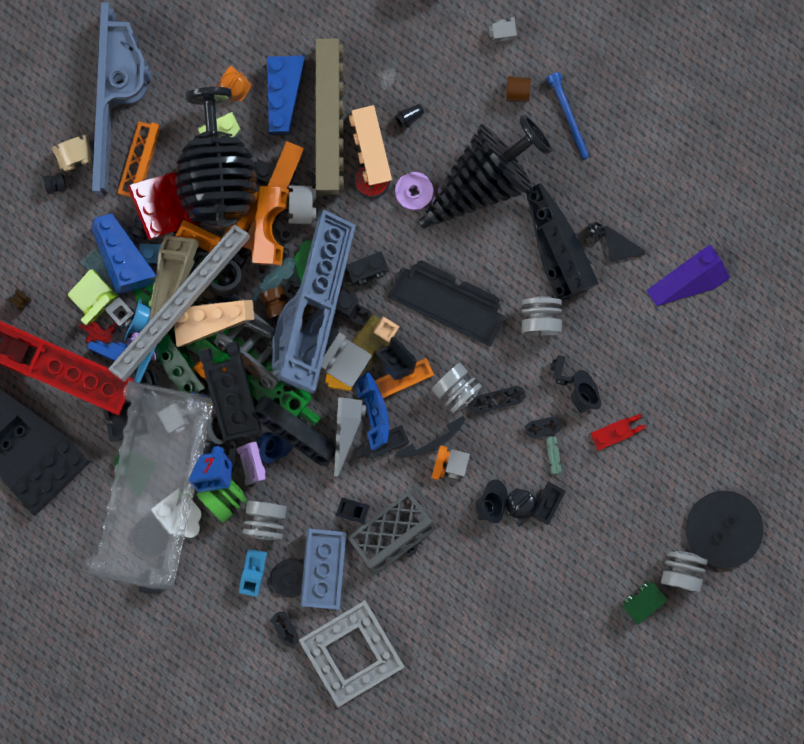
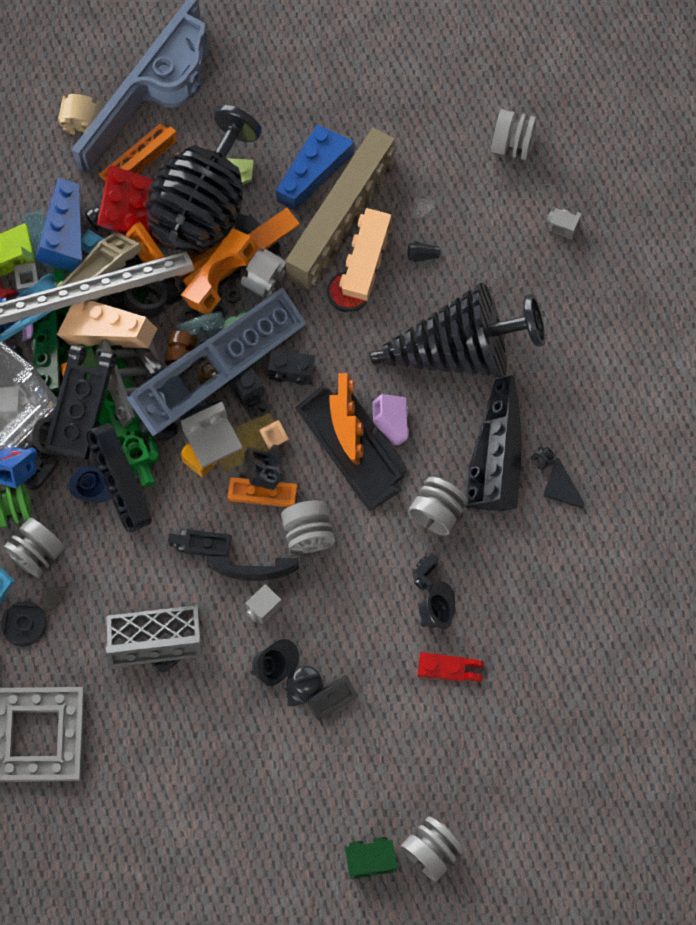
camera: 30 degrees right, 15 degrees down
(54, 183) = (45, 134): black wheel -> none
(236, 82) = (272, 140): orange piece -> none
(251, 463) = (56, 492): lavender plate -> none
(323, 569) = (61, 631): sand blue plate -> none
(348, 421) = (182, 499): light grey wedge -> none
(353, 510) = (130, 593): black slope -> none
(376, 410) = (219, 486): blue slope -> none
(404, 195) = (383, 311): lavender plate -> none
(438, 294) = (347, 427): none -> orange slope
(439, 469) = (245, 591): orange plate -> none
(466, 266) = (391, 417): none -> lavender slope
(513, 401) = (326, 567): black beam -> none
(518, 89) = (545, 282): reddish brown piece -> none
(544, 432) = (372, 624): black beam -> none
(553, 453) = (368, 654): sand green axle -> none
(555, 82) = (587, 295): blue piece -> none
(697, 275) = (621, 555): dark purple wedge -> none
(724, 529) = (504, 833): black plate -> none

